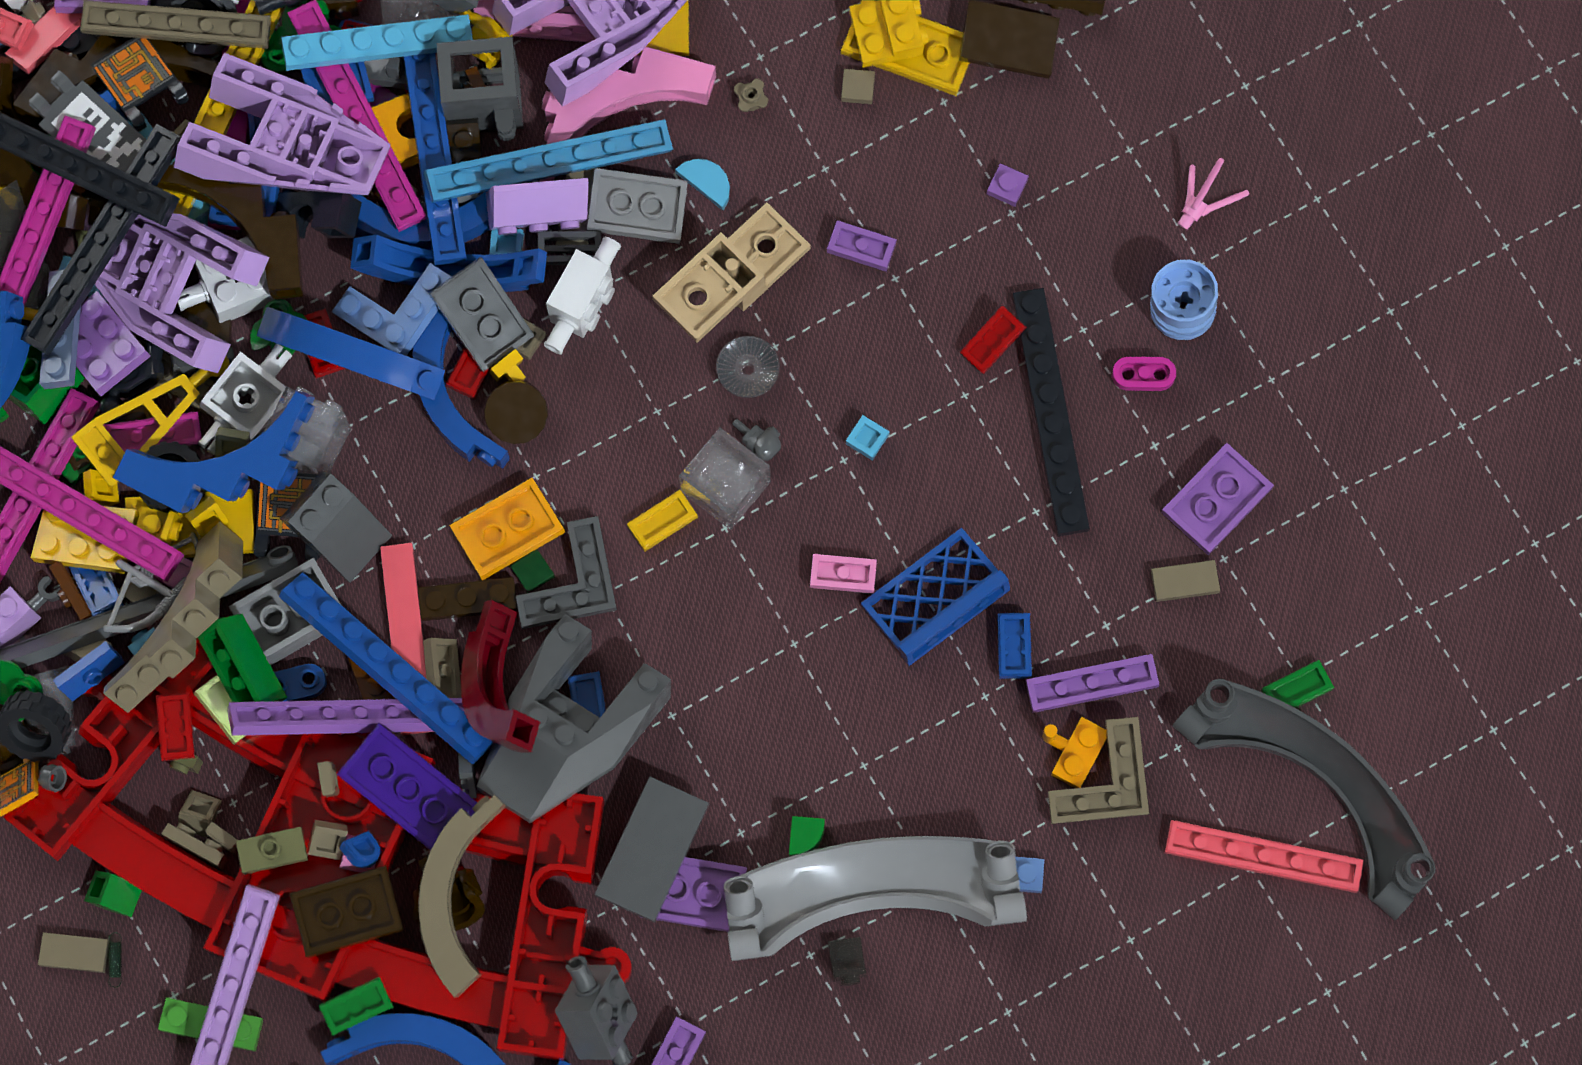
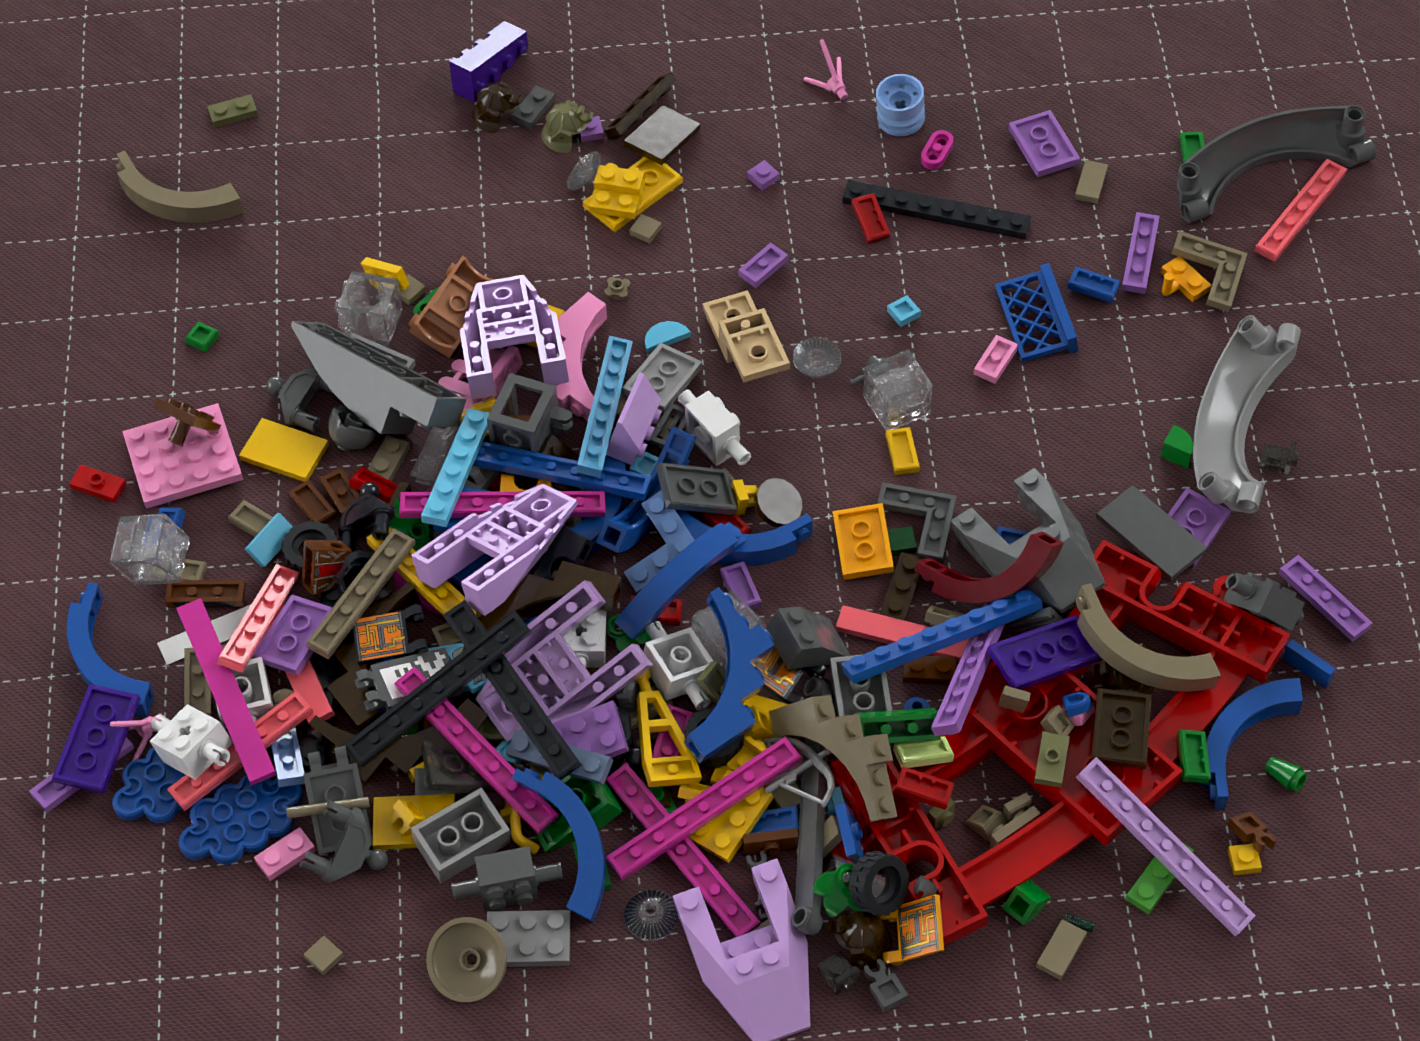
camera: 65 degrees left, 20 degrees down
(391, 421) = (737, 578): none -> medium lavender tile

